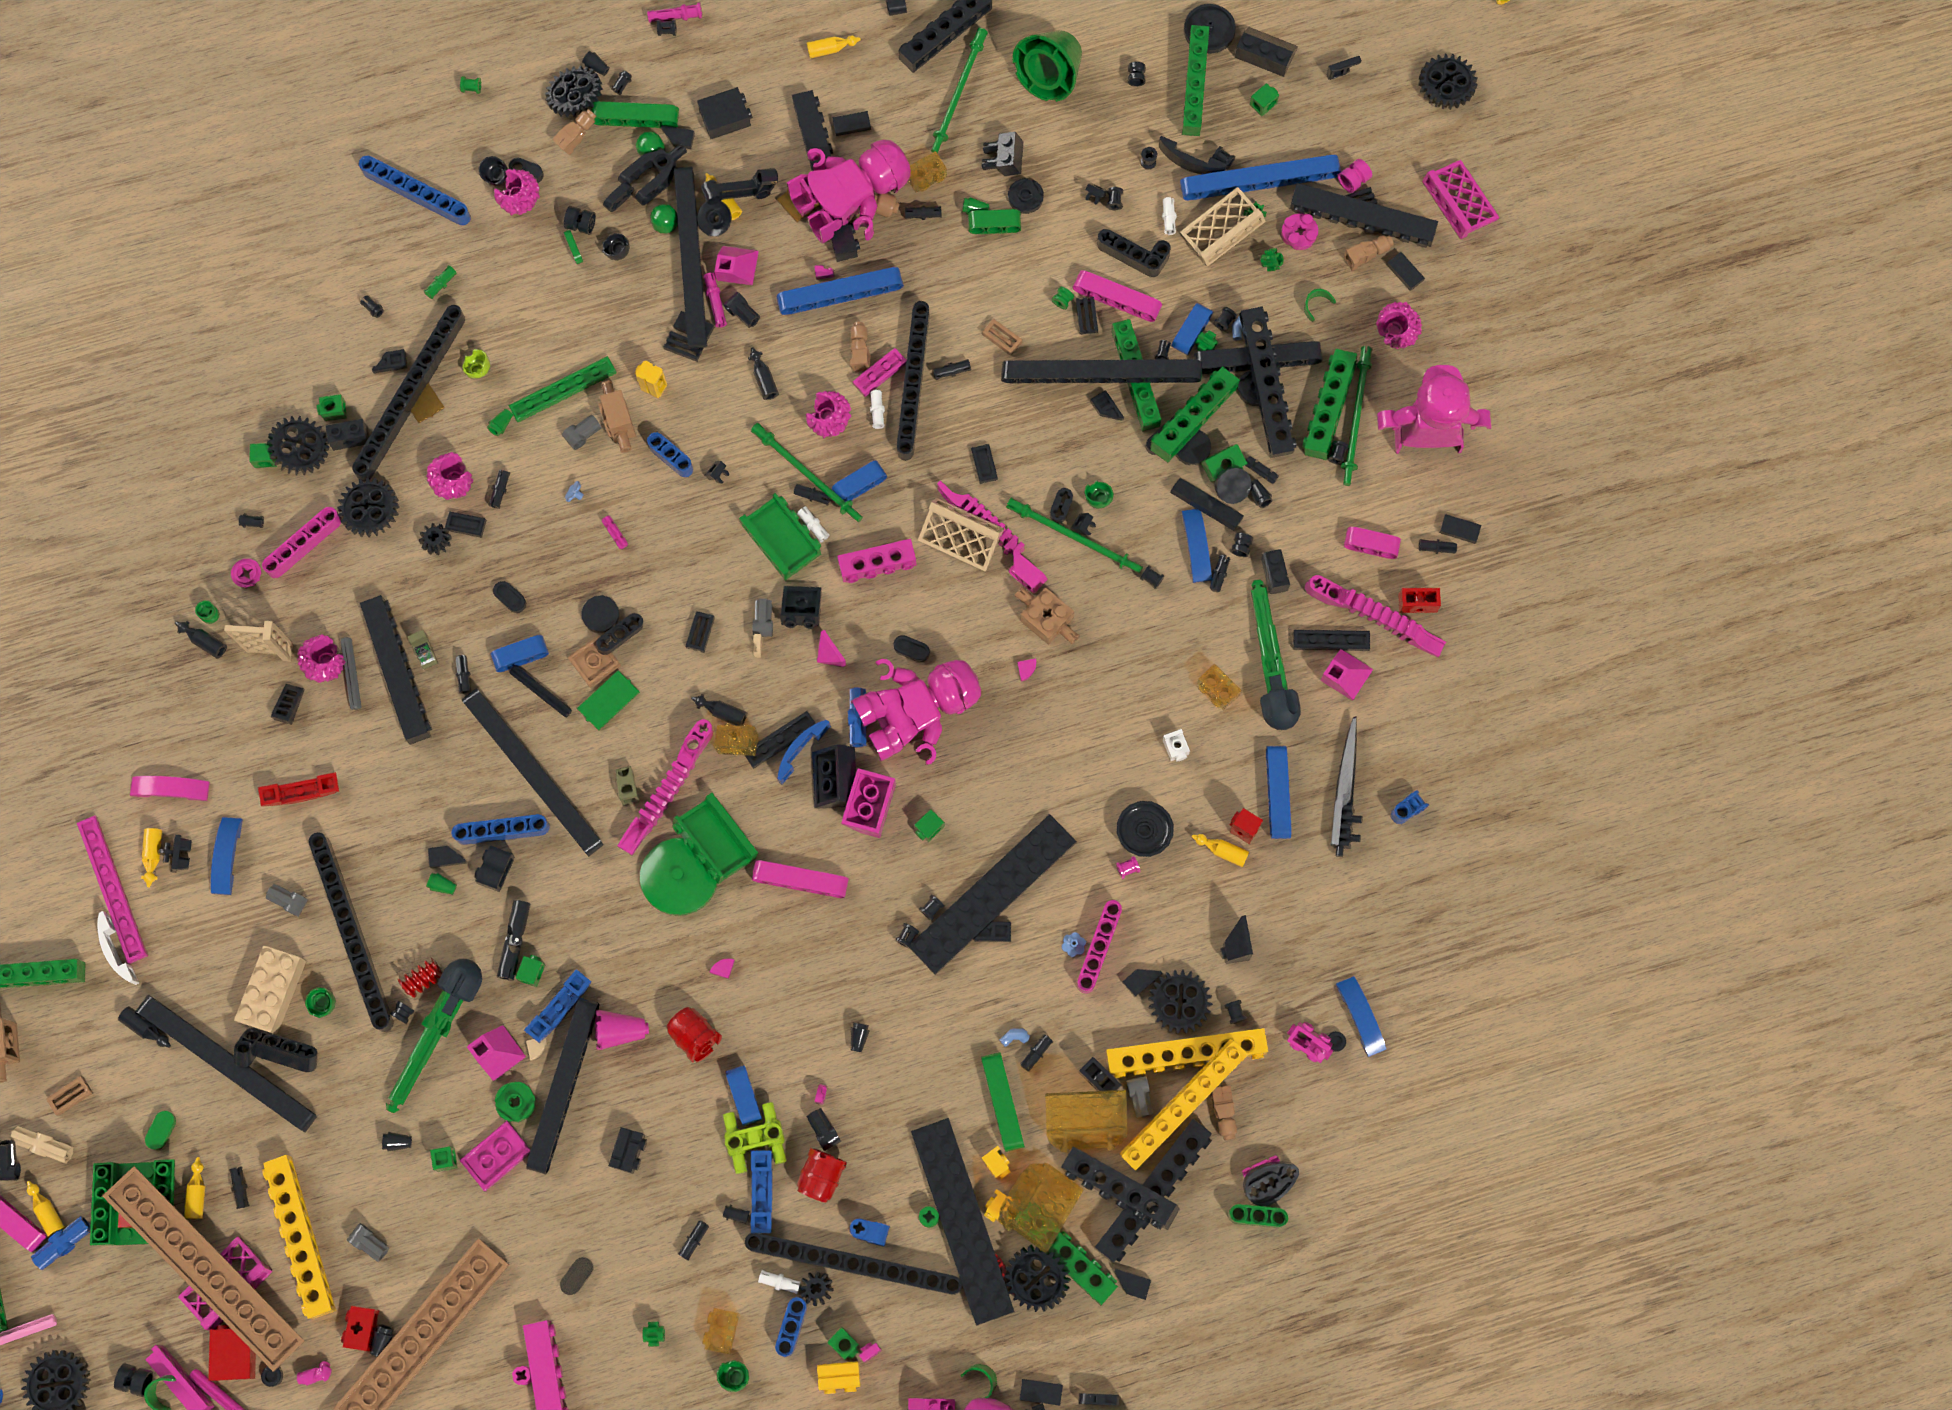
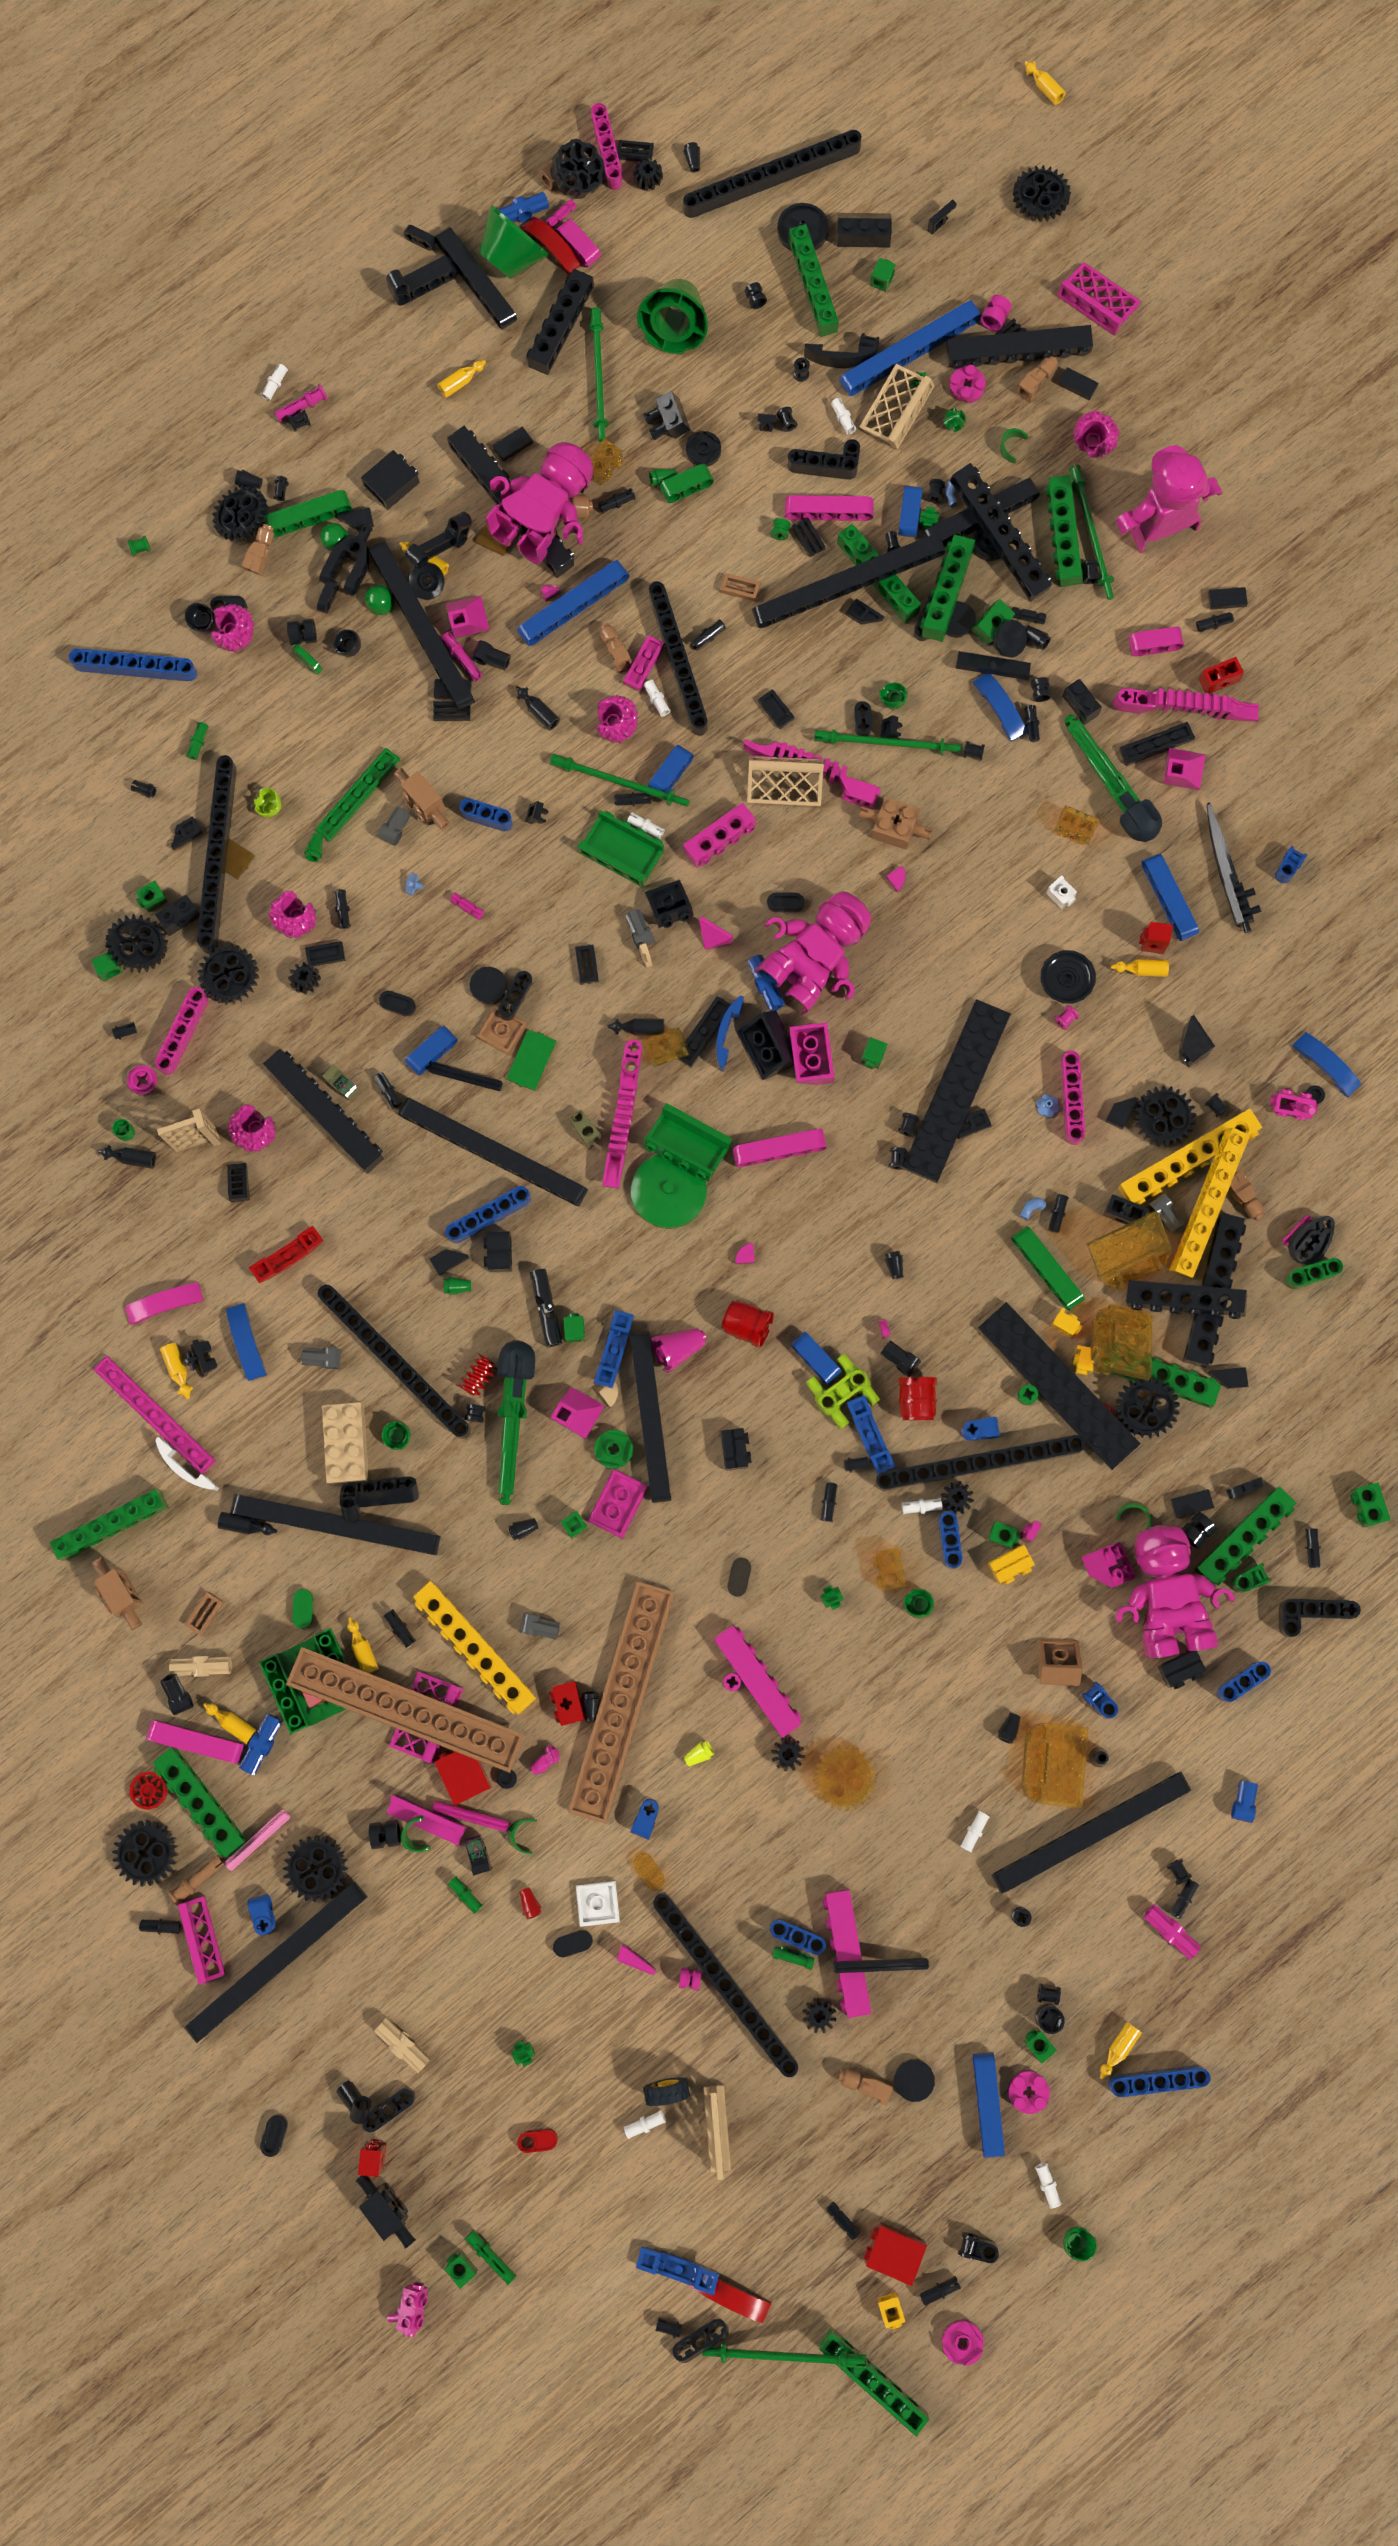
camera: 20 degrees left, 5 degrees up
(351, 673) = (283, 1132): dark grey axle -> none
(651, 379) = (437, 751): yellow brick -> none

